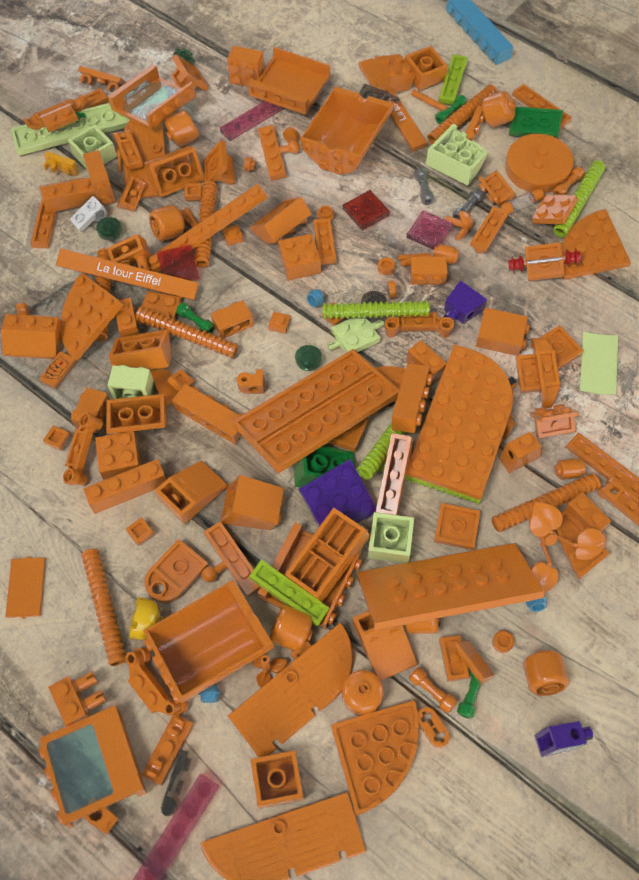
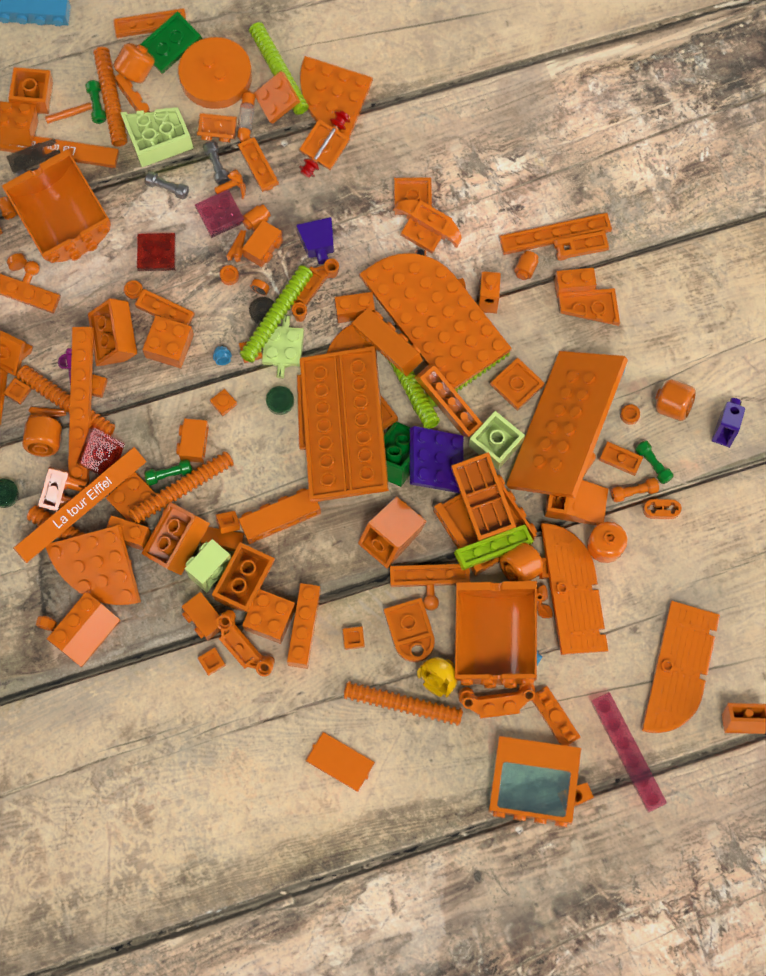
camera: 60 degrees left, 10 degrees up
(57, 370) = (135, 625): orange tile -> none
(69, 701) = (472, 772): orange brick -> none
(175, 783) = (587, 724): clear smoke hinge -> none
(190, 491) = (345, 574): orange slope -> none
(249, 164) = (22, 320): orange plate -> none
(251, 383) = (271, 465): orange leg -> none
(277, 779) = (633, 645): orange brick -> none
(377, 753) = (656, 561): orange plate -> none
(453, 79) = (60, 75): lime plate -> none
(474, 661) = (636, 445): orange slope -> none
(502, 332) = (367, 227): orange brick -> none
(542, 523) = (571, 321): orange plant -> none
(554, 421) = (477, 246): orange bracket -> none
(554, 498) = (542, 303): orange piece -> none
(576, 175) = (259, 78): orange piece -> none
(599, 363) = (447, 173): yellowish green sticker -> none

